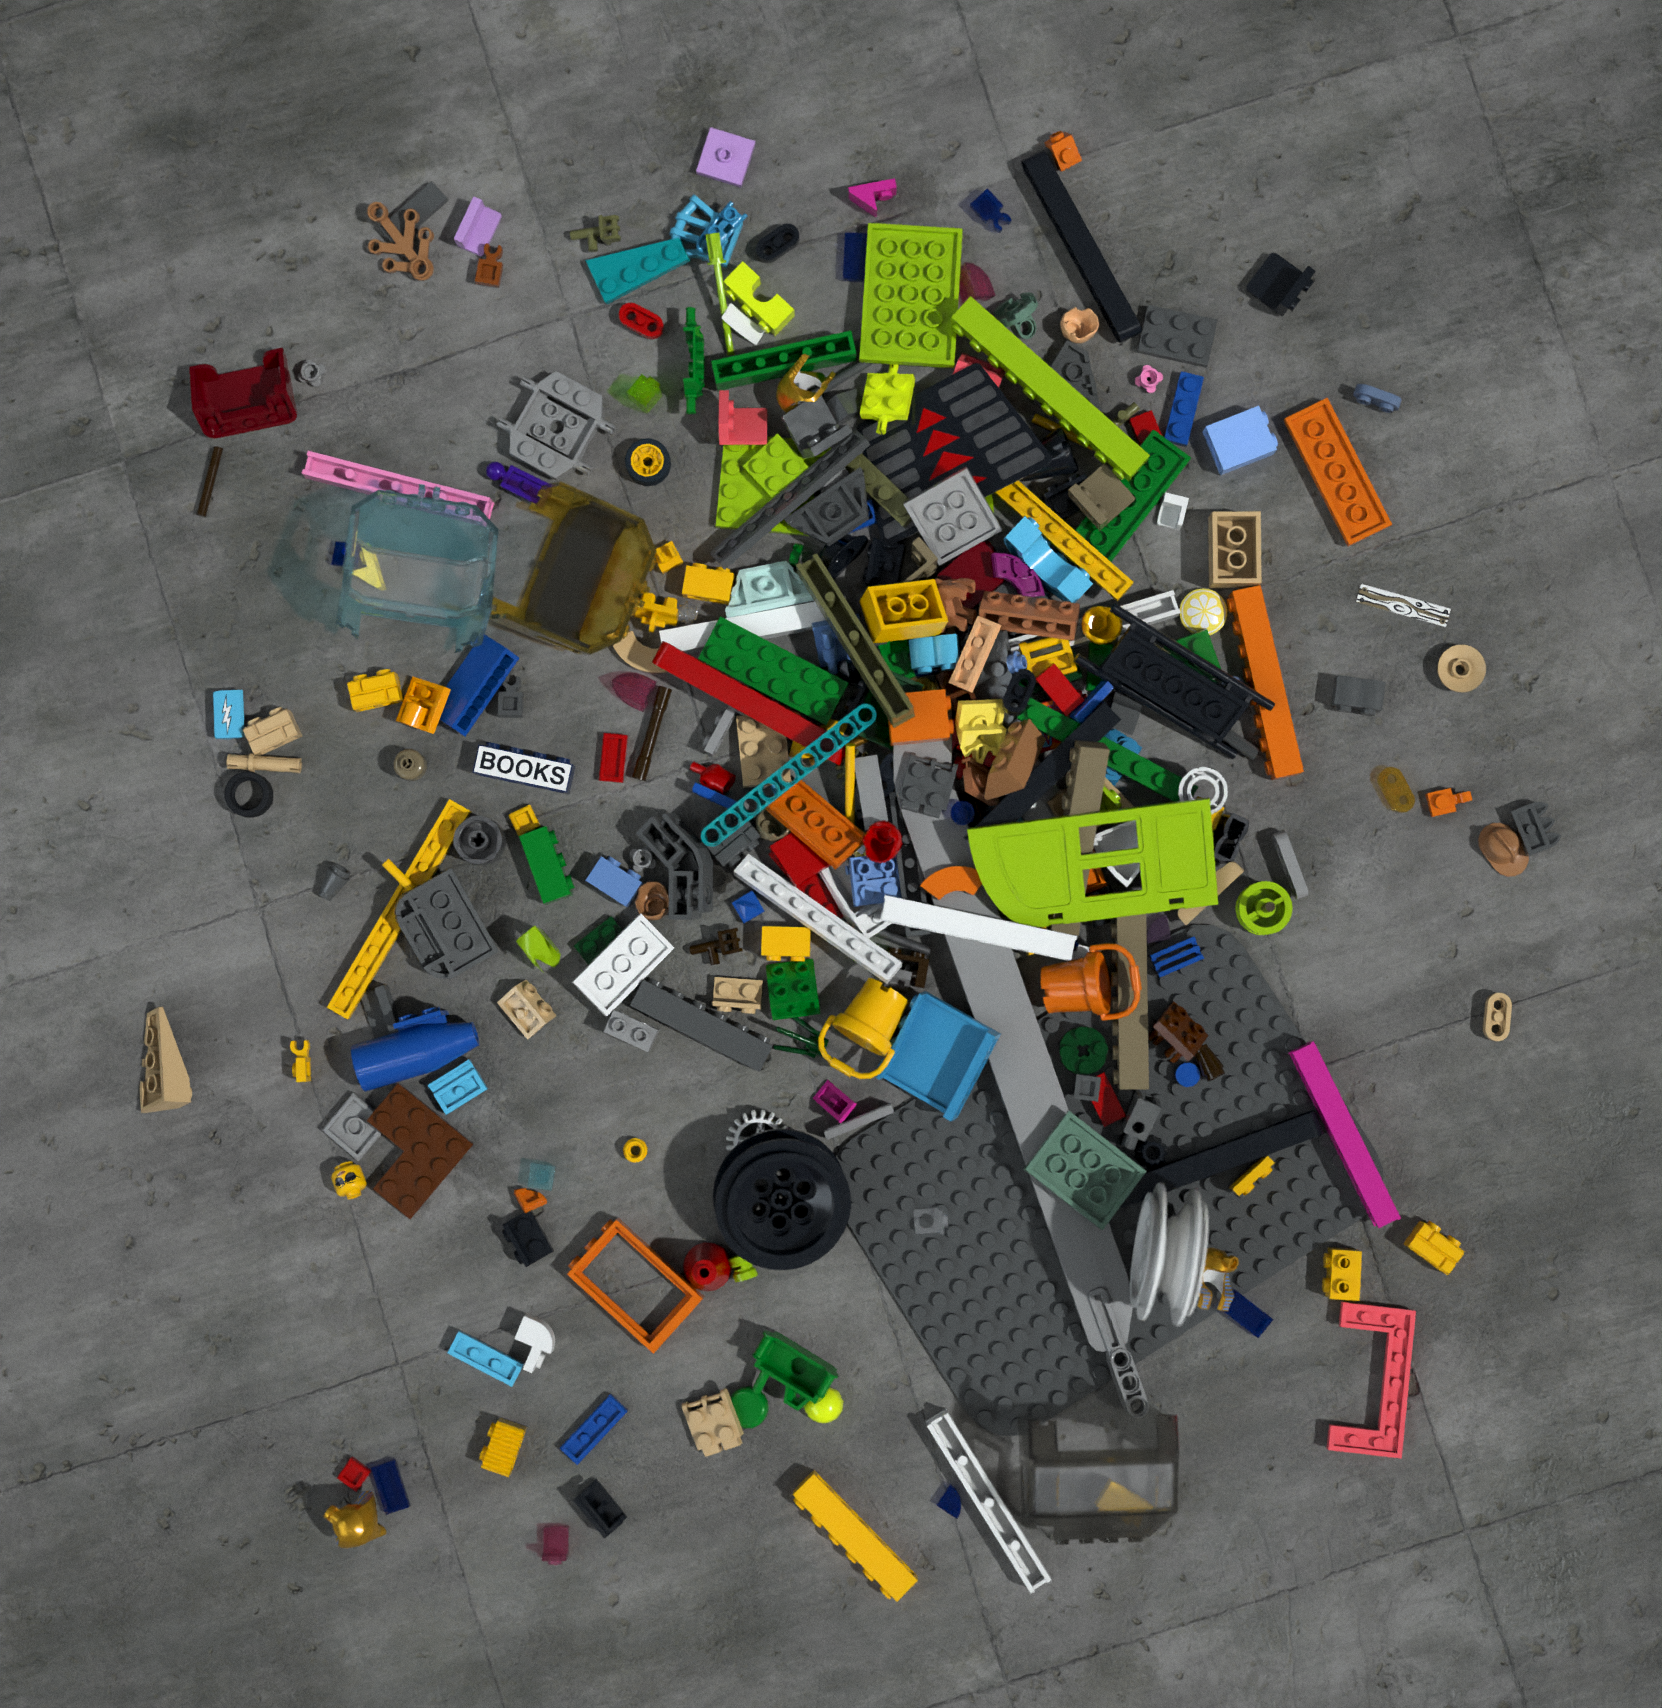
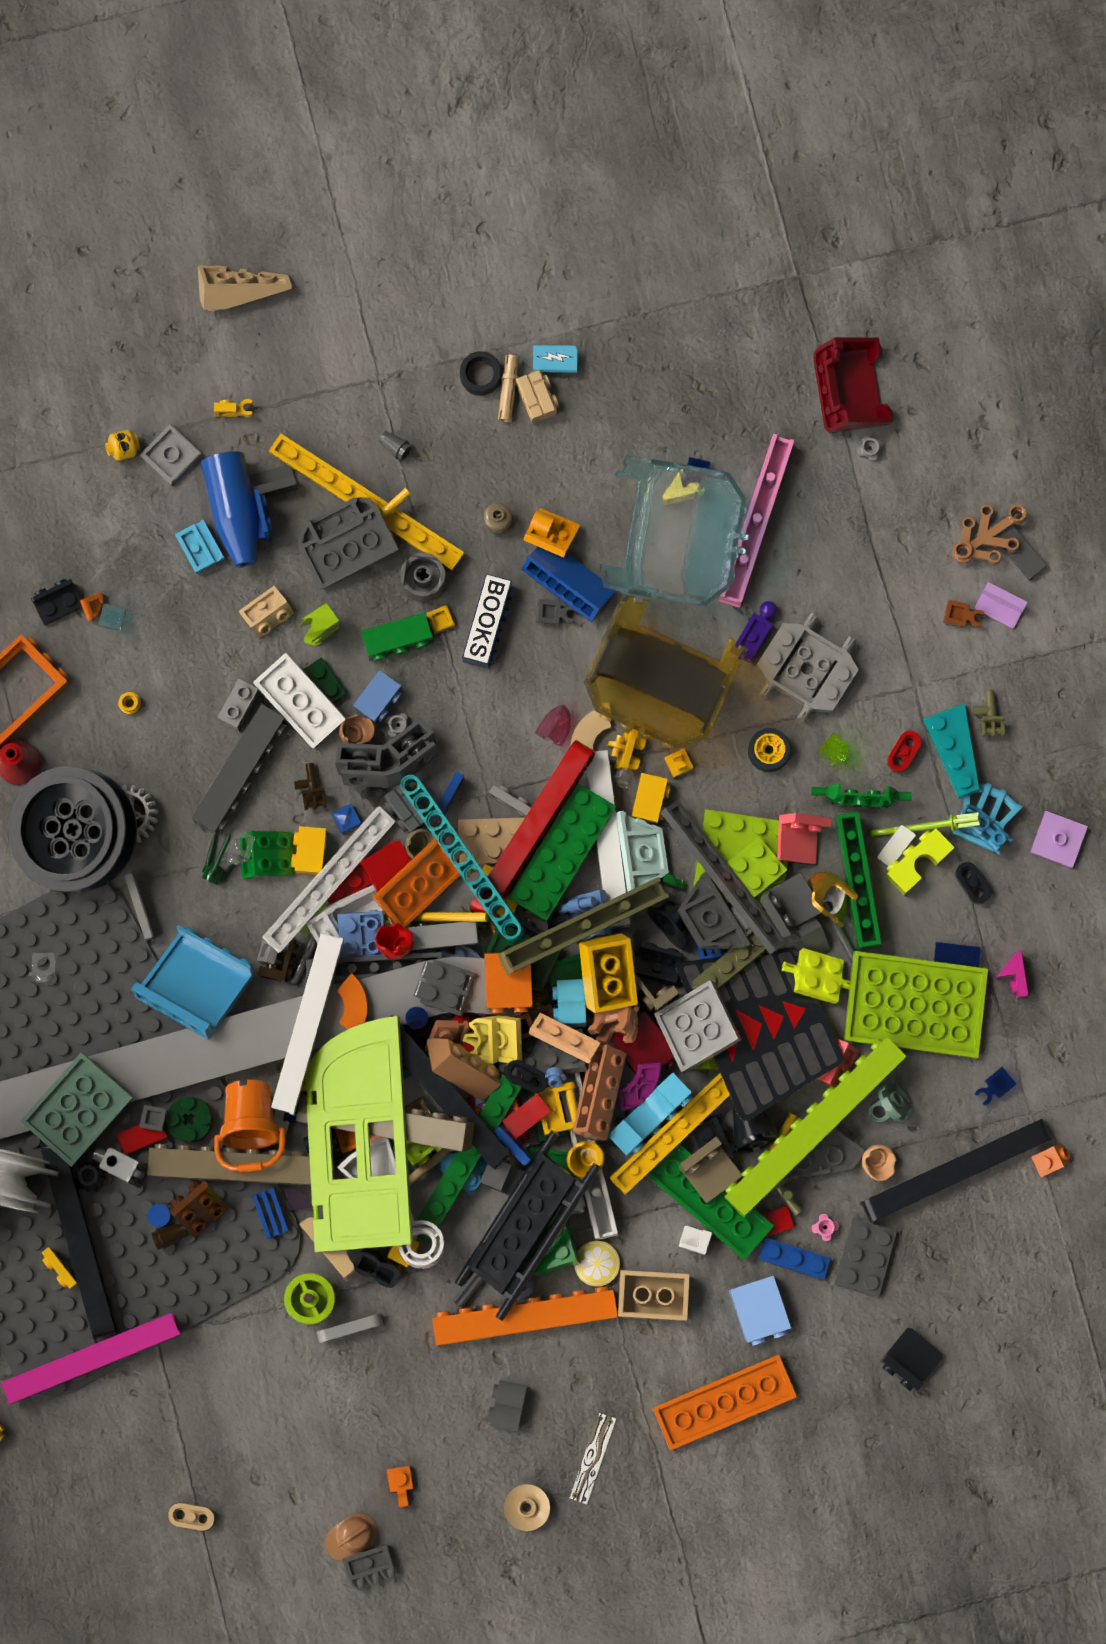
camera: 85 degrees right, 5 degrees down
(209, 481) = (765, 349): dark brown bar -> none
(375, 691) = (568, 490): yellow brick -> none
(429, 1148) = (150, 517): reddish brown plate -> none
(613, 758) = (493, 703): red tile -> none
(659, 707) = (489, 731): dark brown piece -> none
(714, 777) = (468, 794): red piece -> none
(738, 994) = (265, 804): tan bracket -> none
(742, 1269) = (11, 792): lime wheel -> none
(797, 1022) = (236, 856): none -> clear bracket
(834, 1101) = (159, 887): dark pink slope -> none
(869, 1023) = (231, 920): yellow piece -> none
(974, 283) = (924, 1066): clear pink brick -> none
(1384, 400) = (789, 1454): sand blue plate -> none
(1394, 790) = (414, 1436): clear yellow plate -> none

